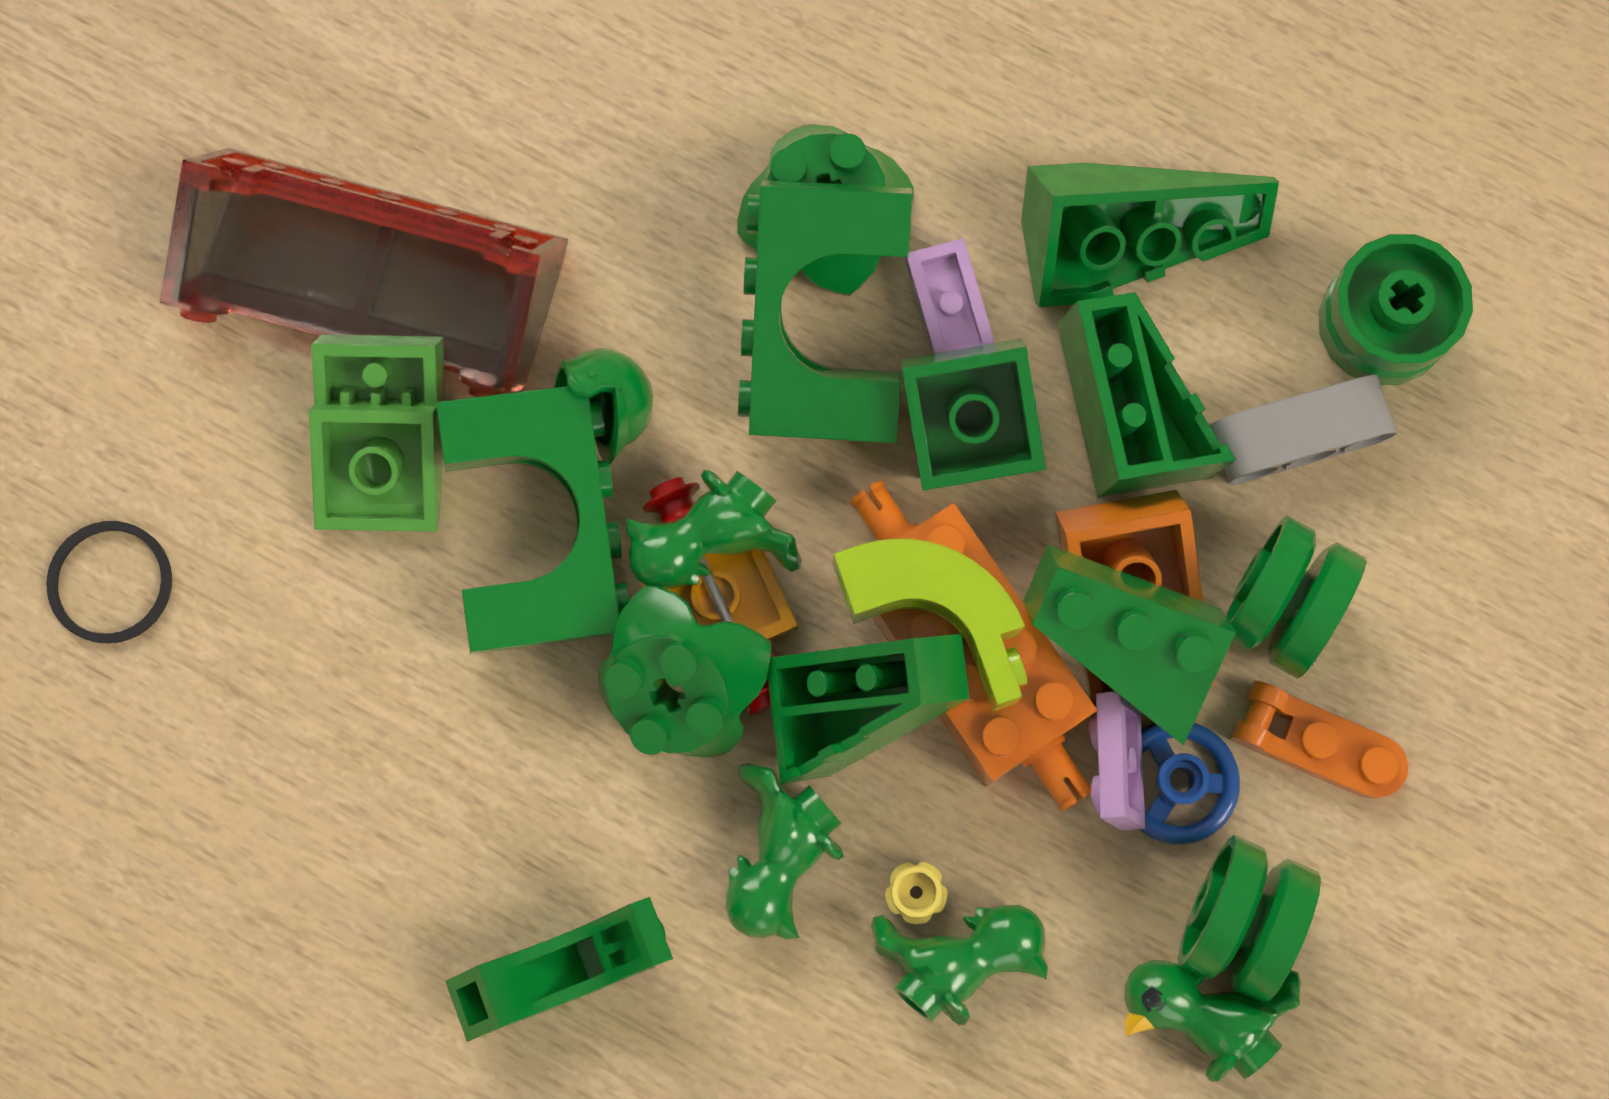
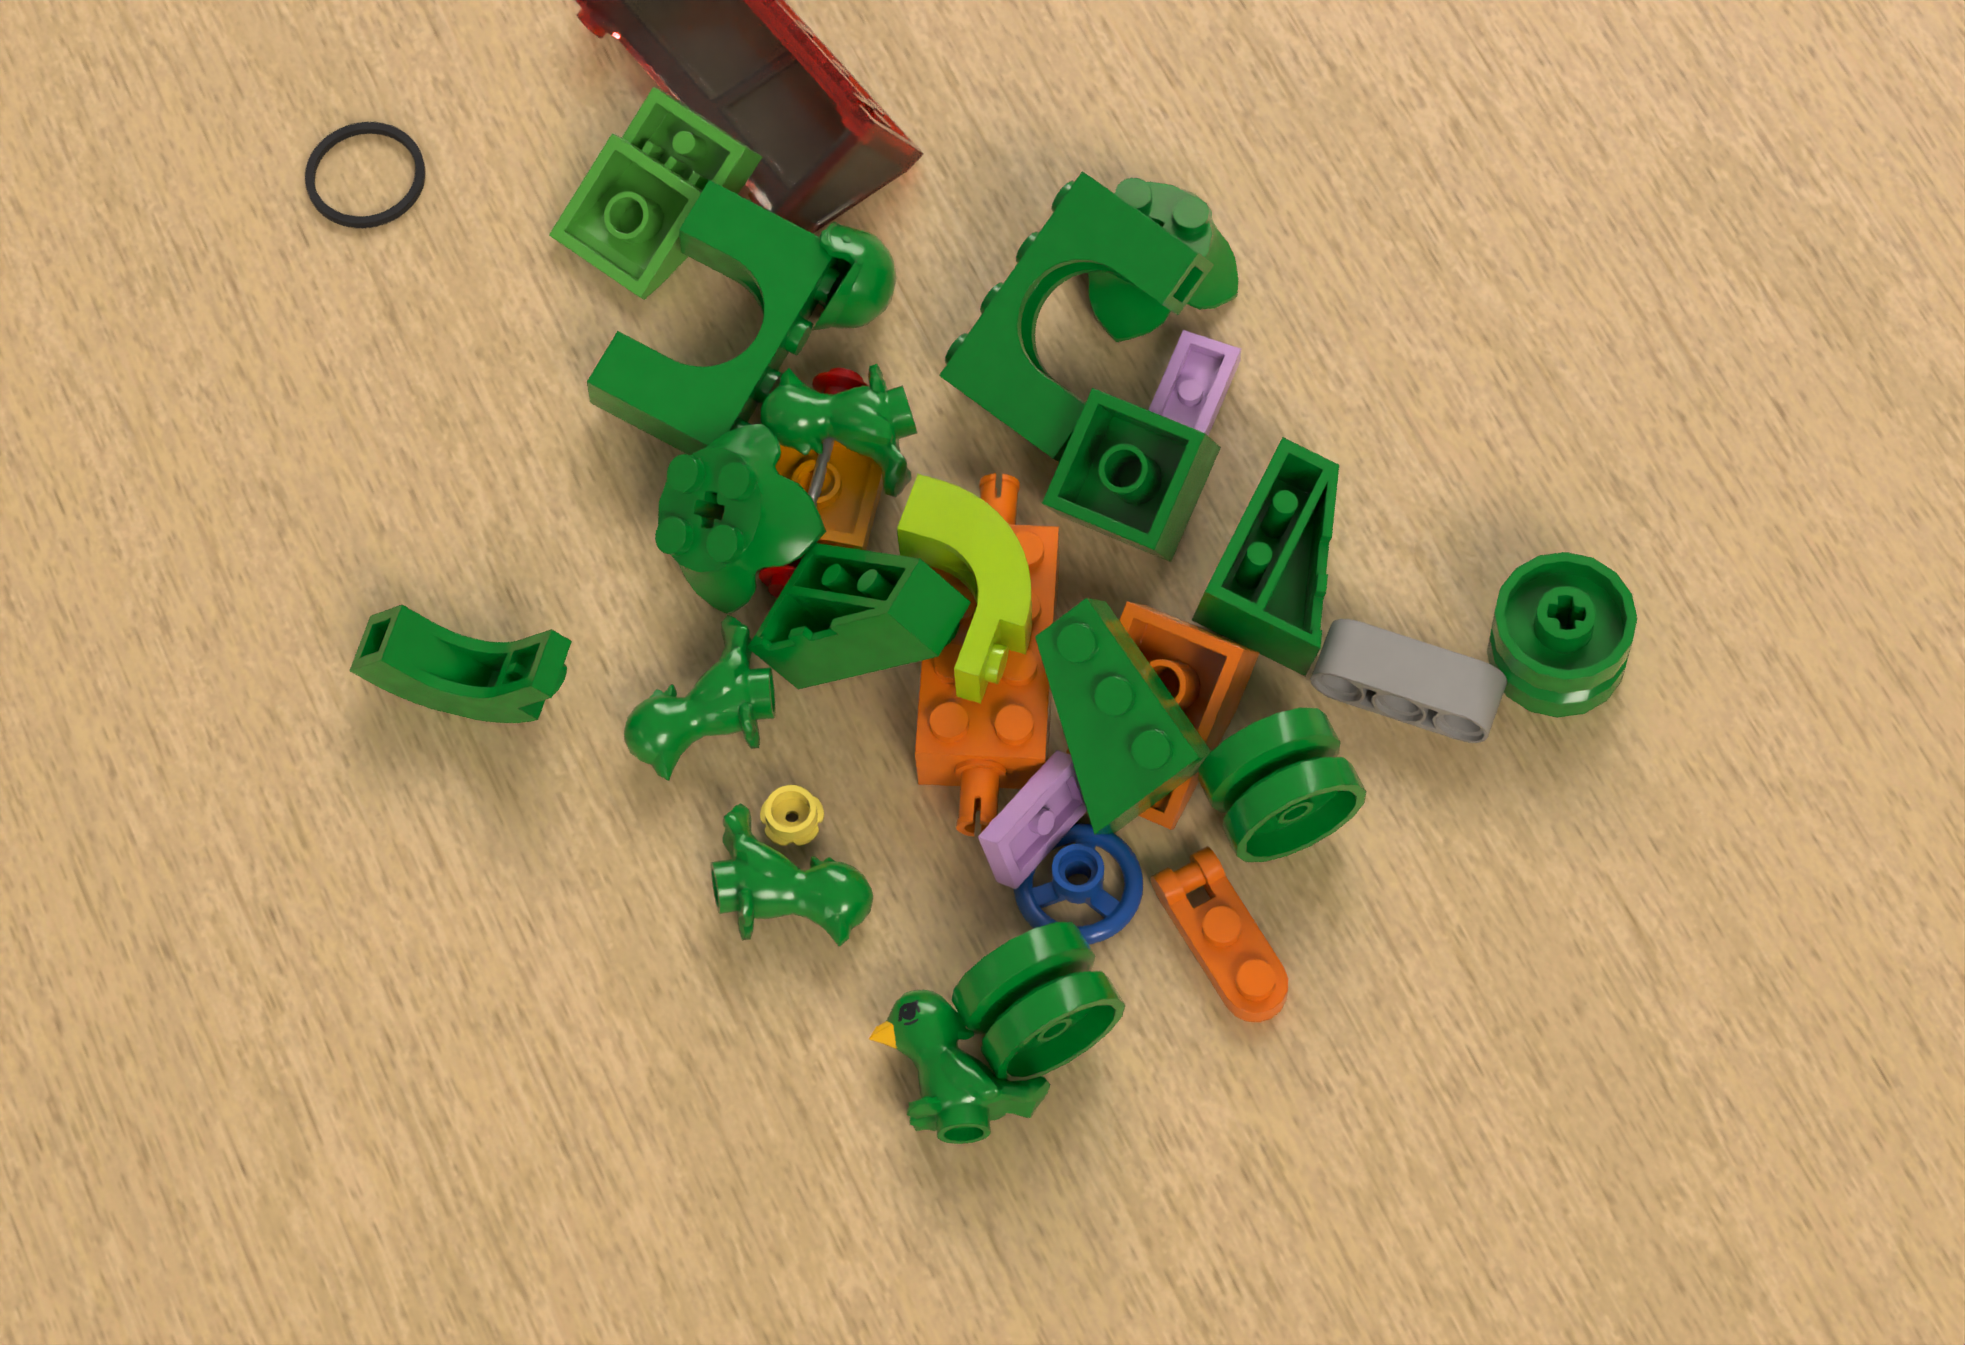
camera: 40 degrees right, 15 degrees down
(1119, 223) = (1400, 432): green wedge -> none

